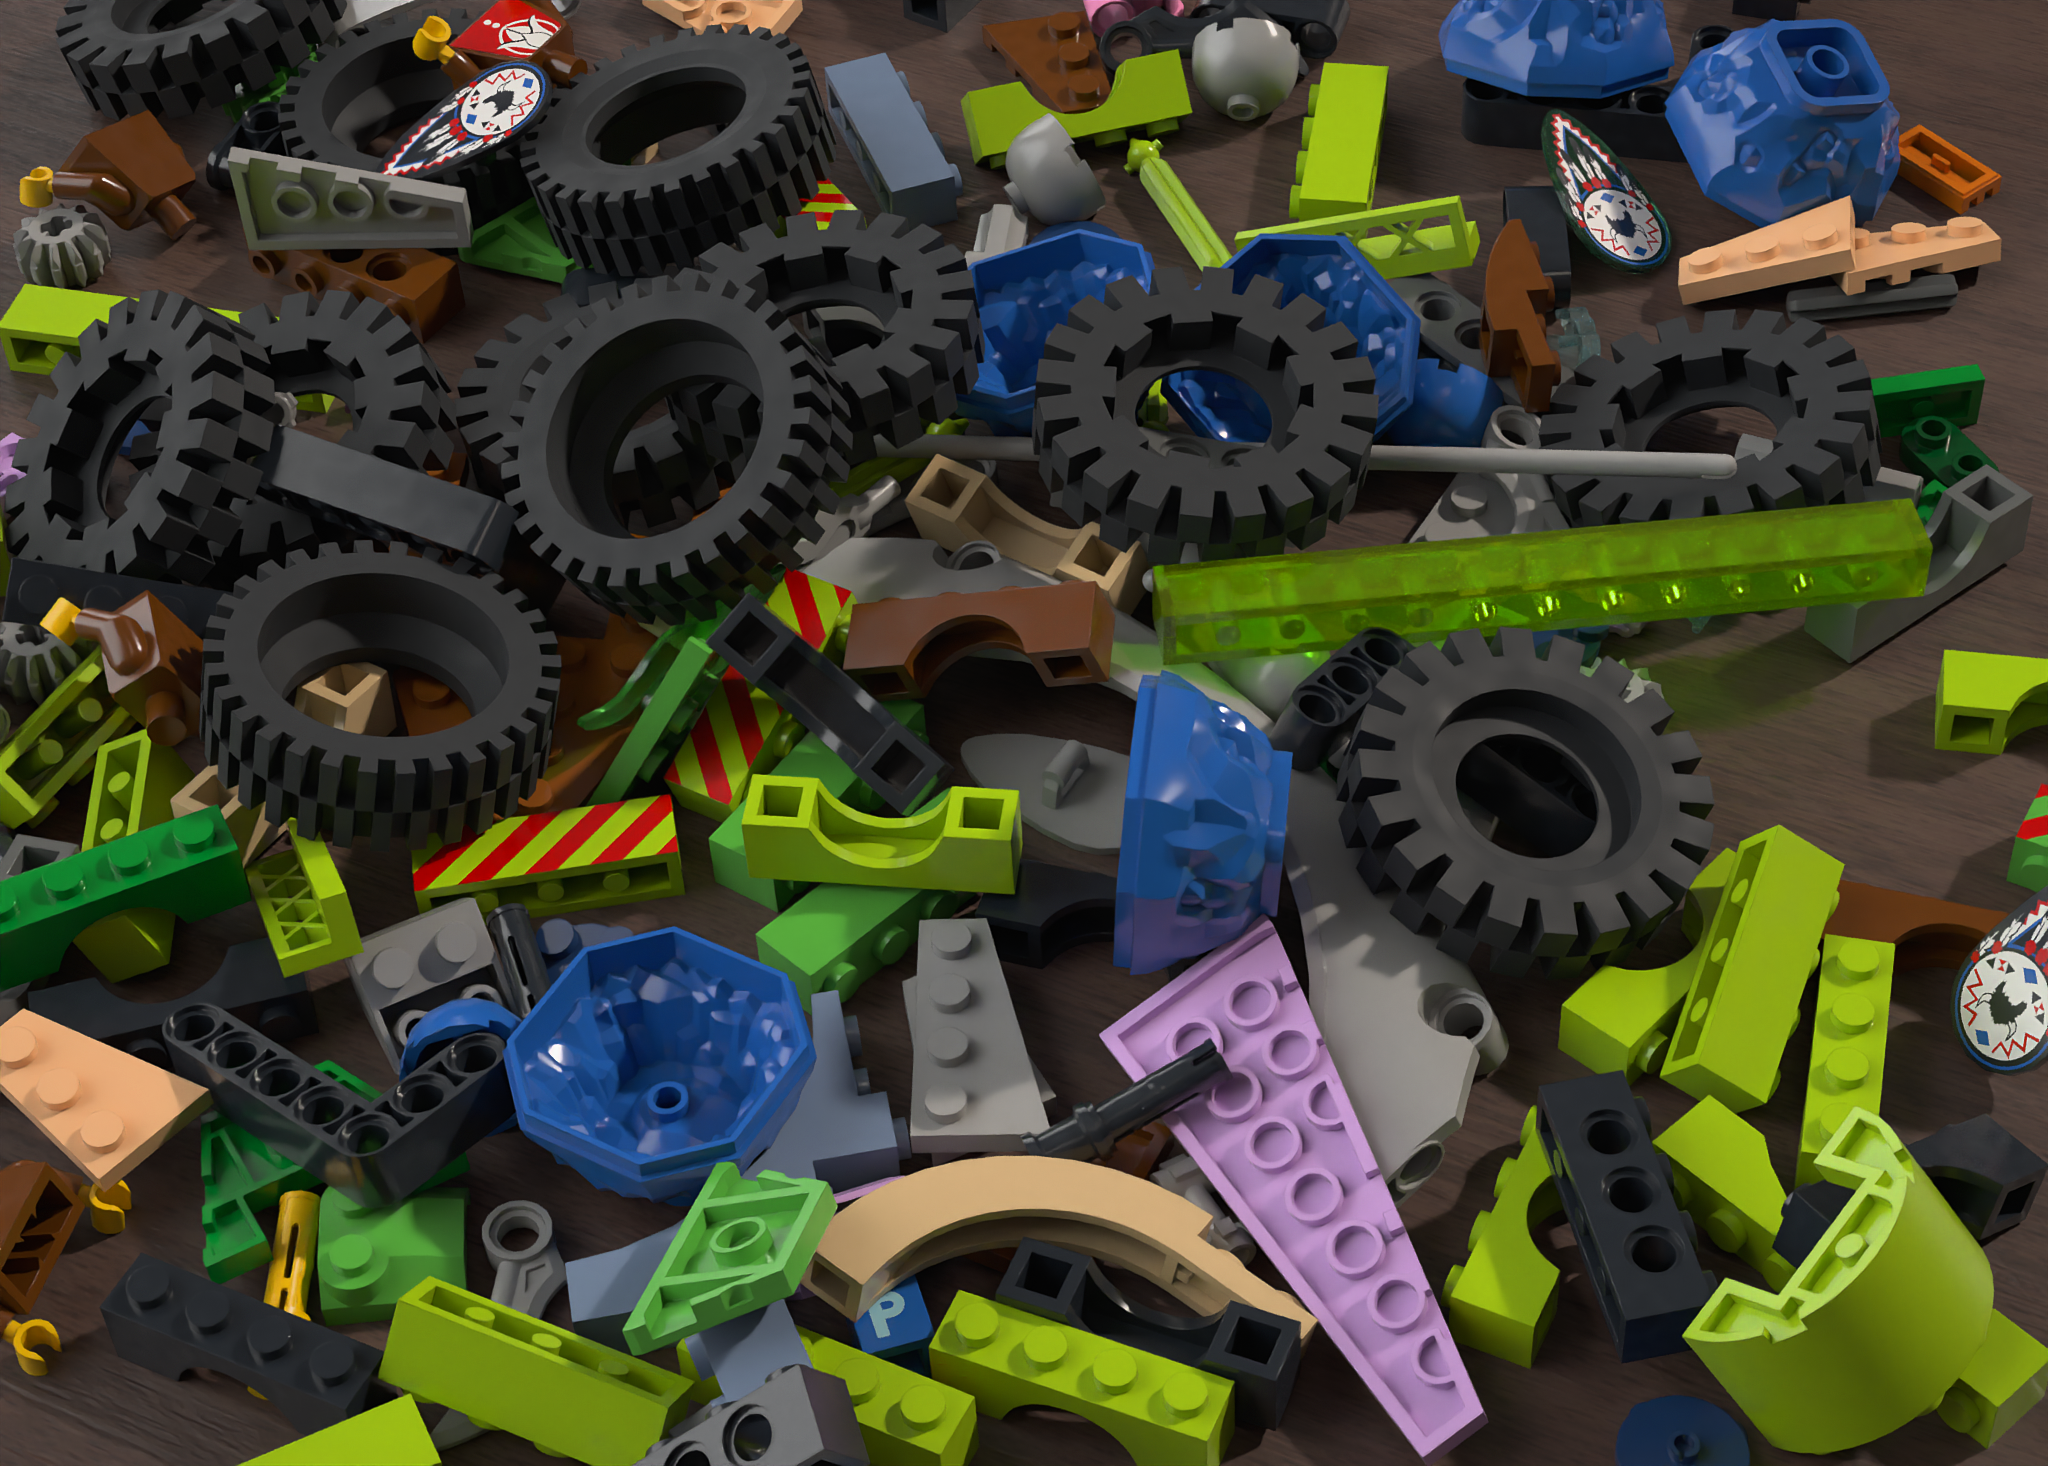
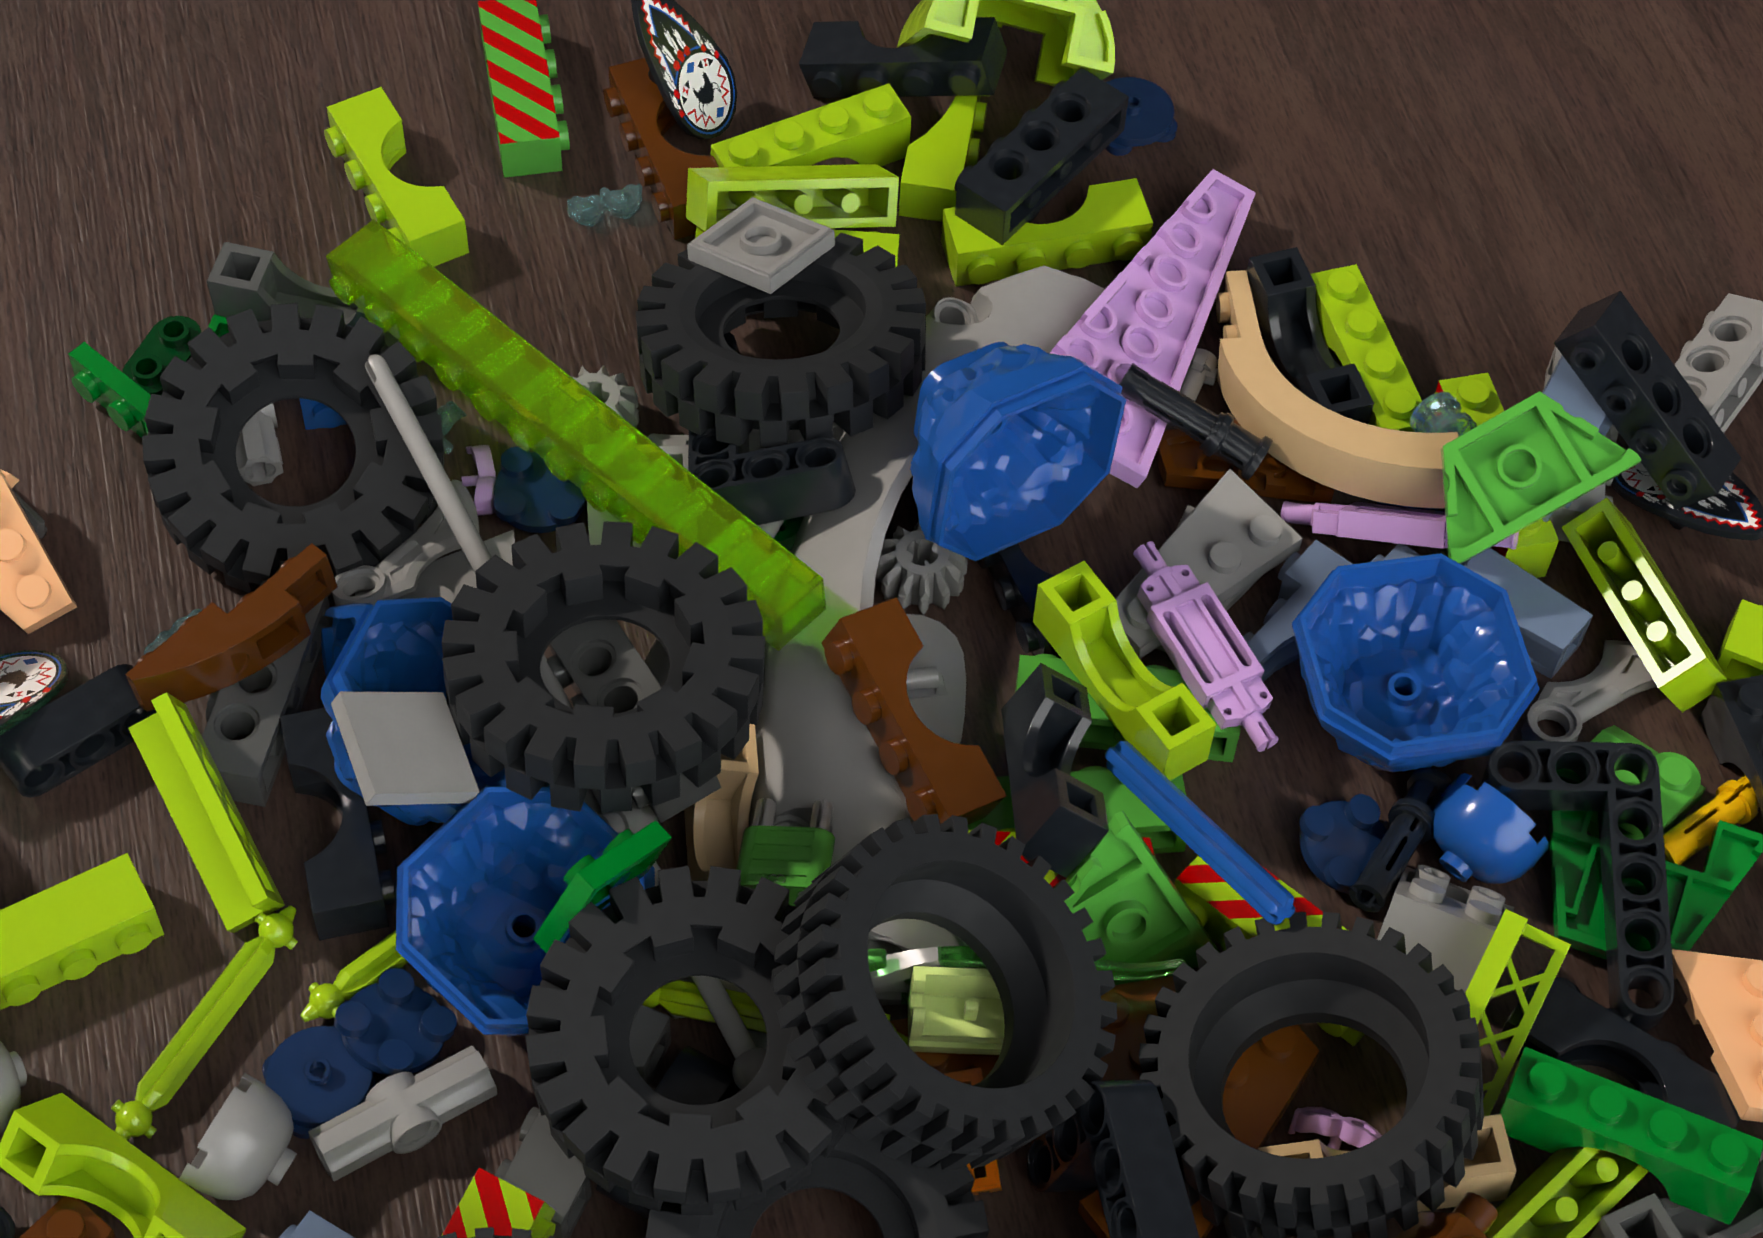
camera: 135 degrees left, 10 degrees up
(629, 756) = (1200, 833): none -> blue axle
(862, 943) = (1205, 646): none -> lavender piece
(901, 1326) = (1441, 415): none -> clear light blue wheel
(942, 511) = (784, 852): none -> bright green piece
(995, 307) = (590, 879): none -> green wing
(1234, 233) = (404, 748): none -> light grey tile
(1655, 831) = (761, 245): none -> light grey tile
(1916, 863) = (617, 203): none -> clear light blue piece

